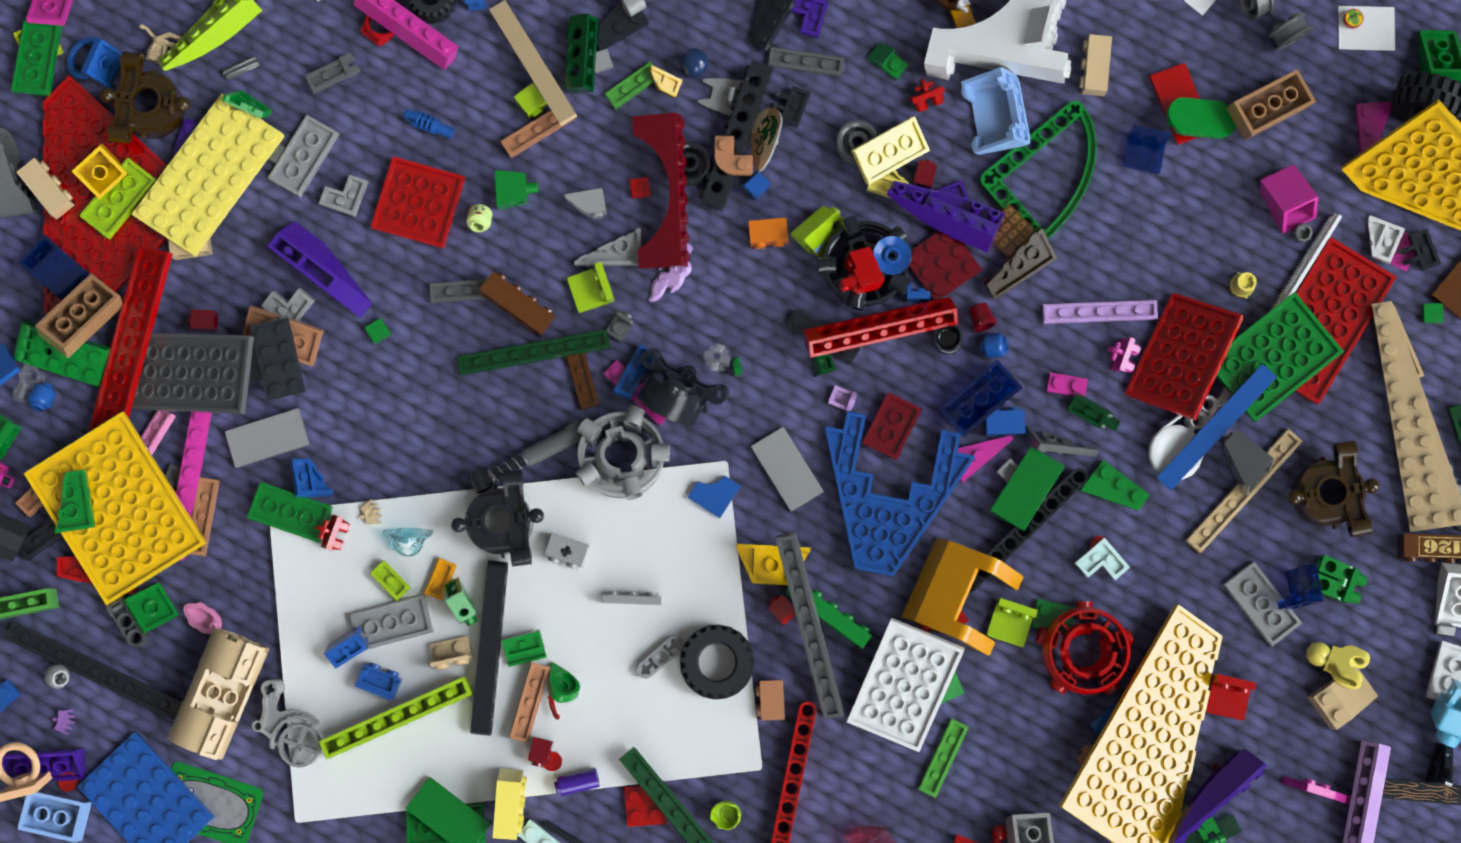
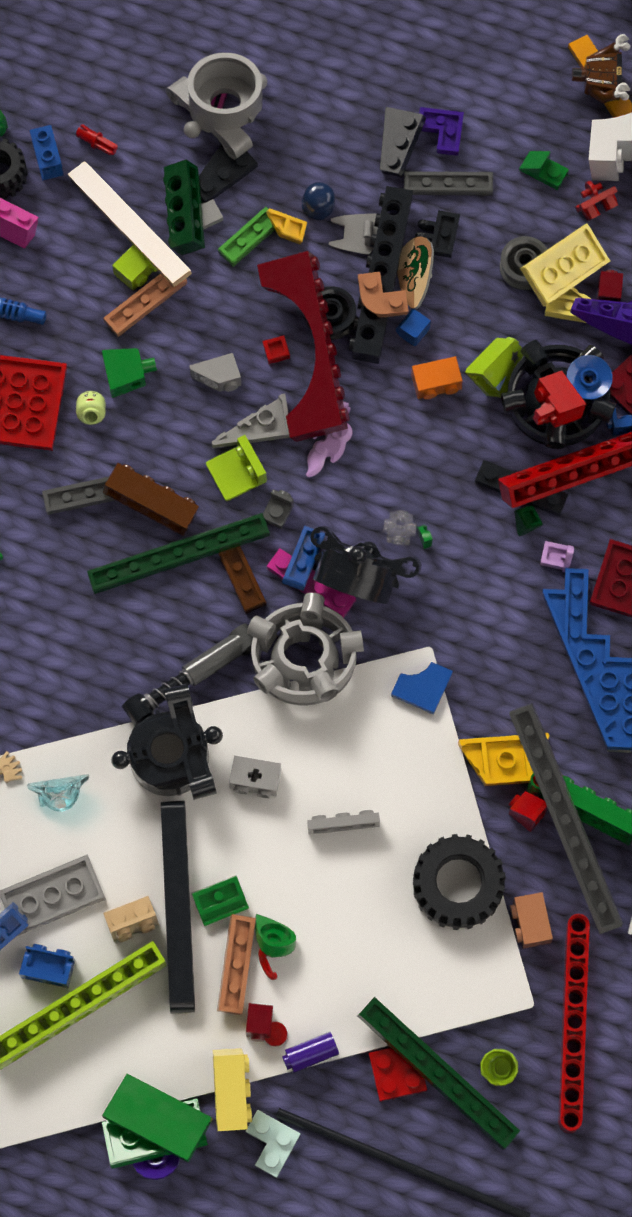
camera: 10 degrees left, 10 degrees down
(391, 580) = (44, 843): lime plate -> none
(440, 576) = (105, 833): light orange tile -> none
(459, 602) = (130, 849): torso -> none
(675, 651) = (405, 878): light grey beam -> none
(787, 469) = (504, 646): light grey tile -> none

